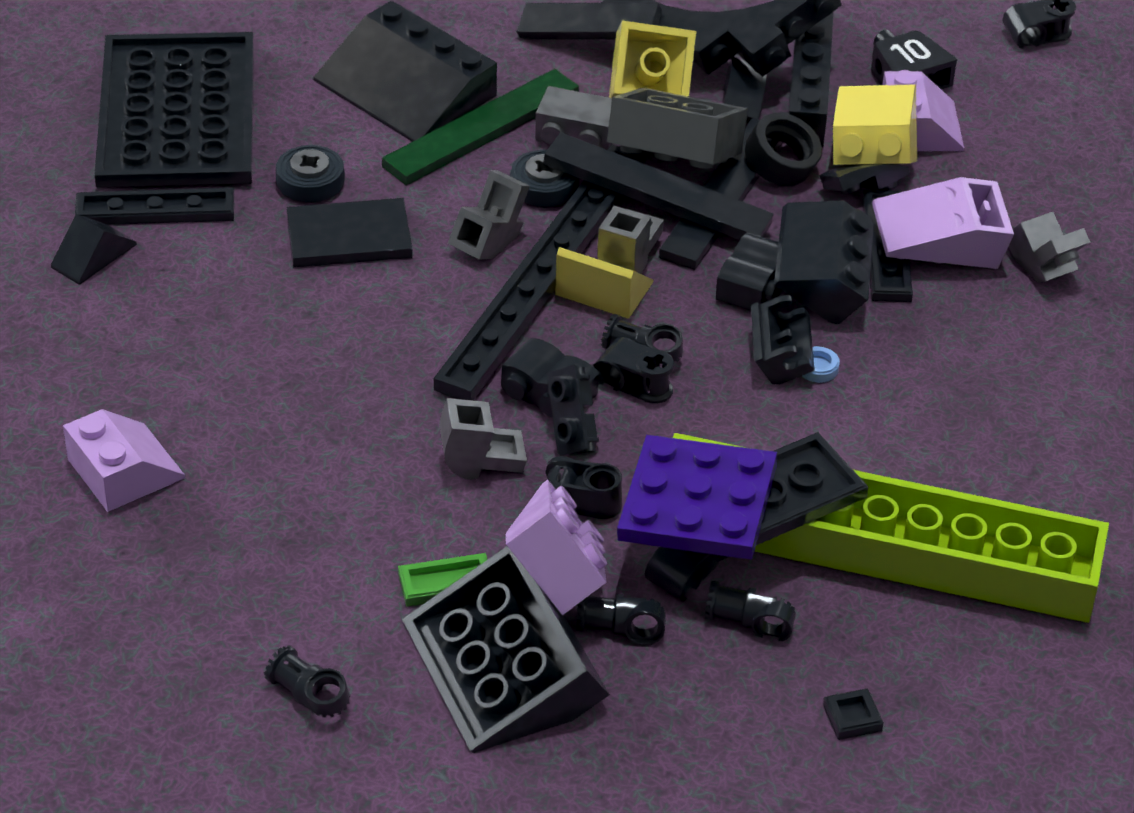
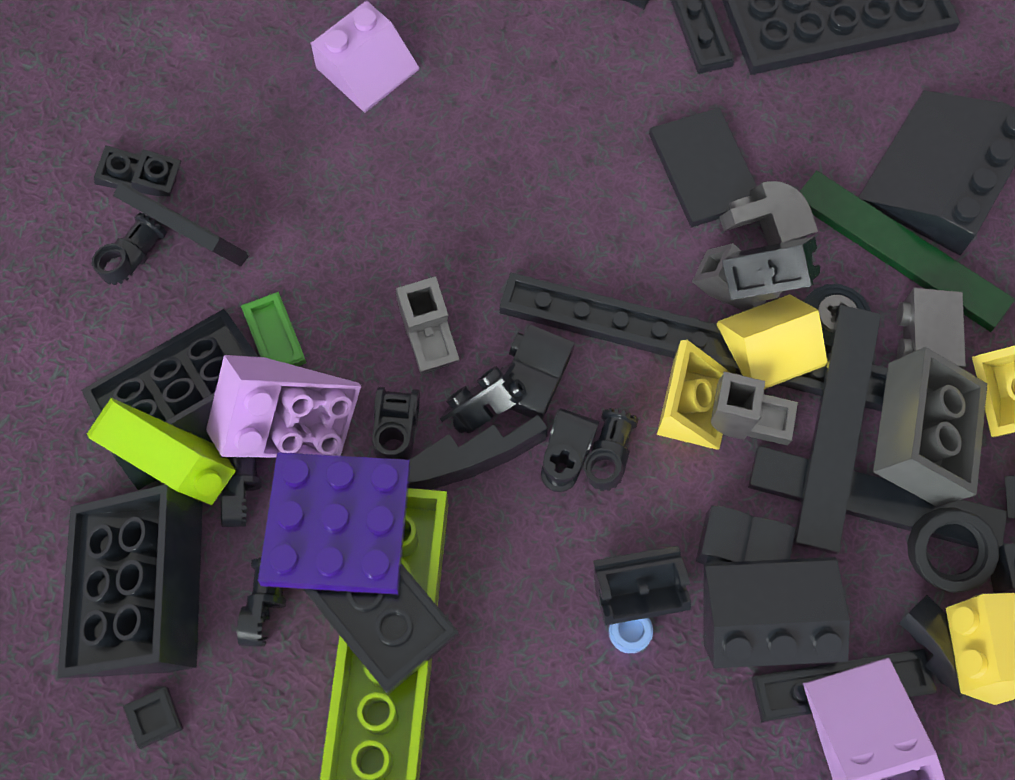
camera: 80 degrees right, 25 degrees up
(199, 677) = (146, 172): none -> black slope
(305, 612) = (180, 224): none -> black tile
(310, 173) = (777, 129): black wheel -> none
(428, 185) = (778, 207): none -> flat silver brick
(506, 172) = (771, 268): none -> hinge
(561, 206) = (776, 340): none -> light yellow slope
(595, 623) = (163, 451): none -> lime slope
(622, 424) = (447, 463): none -> black slope
(712, 710) = (132, 585): none -> black slope

